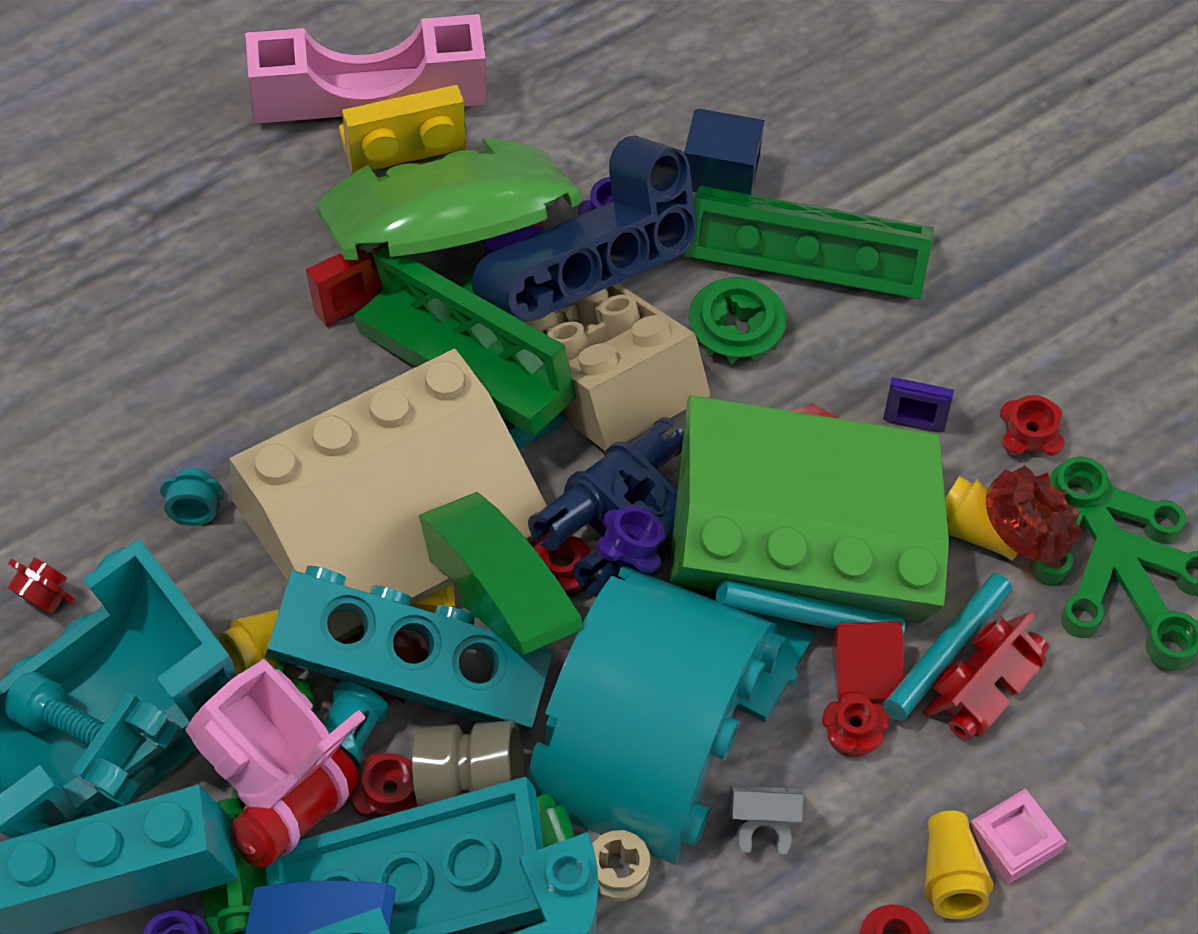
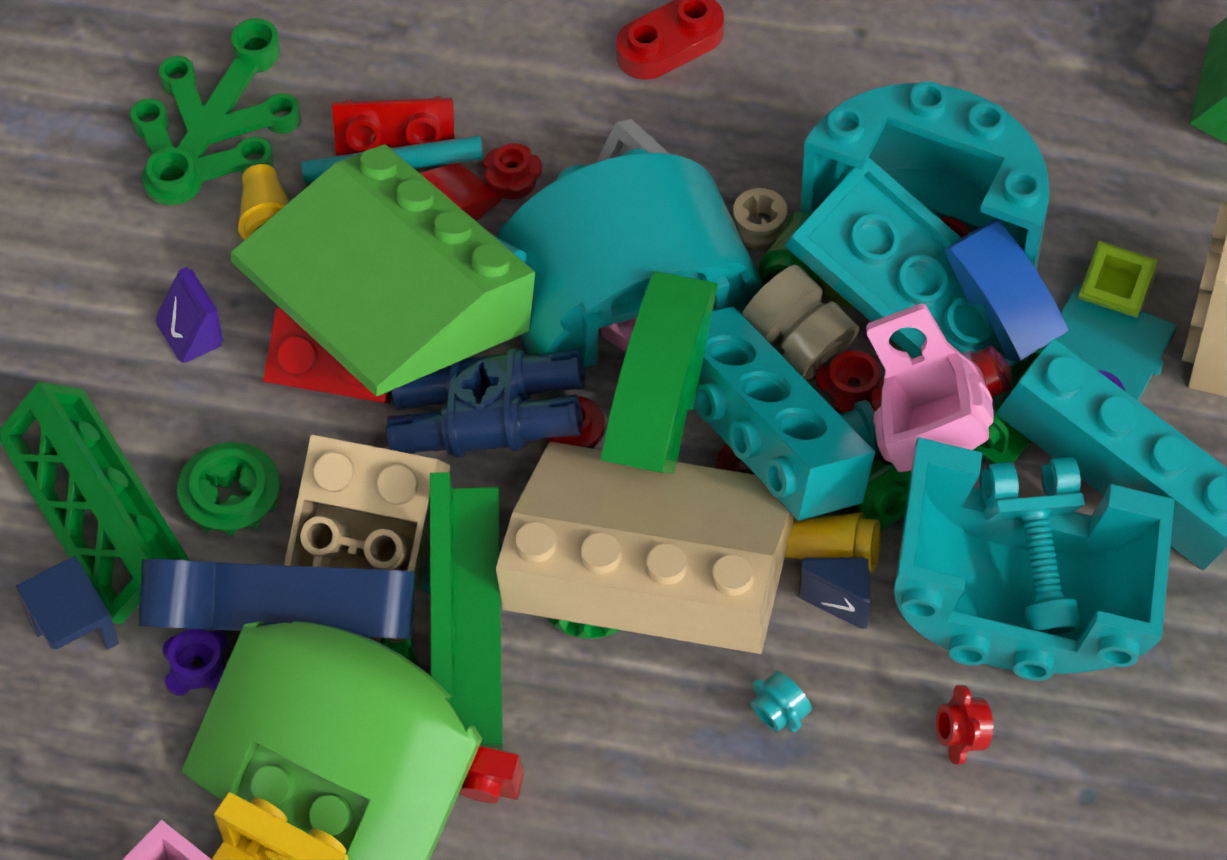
camera: 130 degrees left, 0 degrees up
(228, 597) = (838, 587): none -> dark blue slope
(632, 538) = (532, 341): dark purple plate -> none
(955, 870) = (564, 41): yellow cone -> none
(1017, 836) = (497, 39): bright pink tile -> none
(1024, 528) = (241, 162): clear red gear -> none
(1033, 412) = (139, 226): red plate -> none

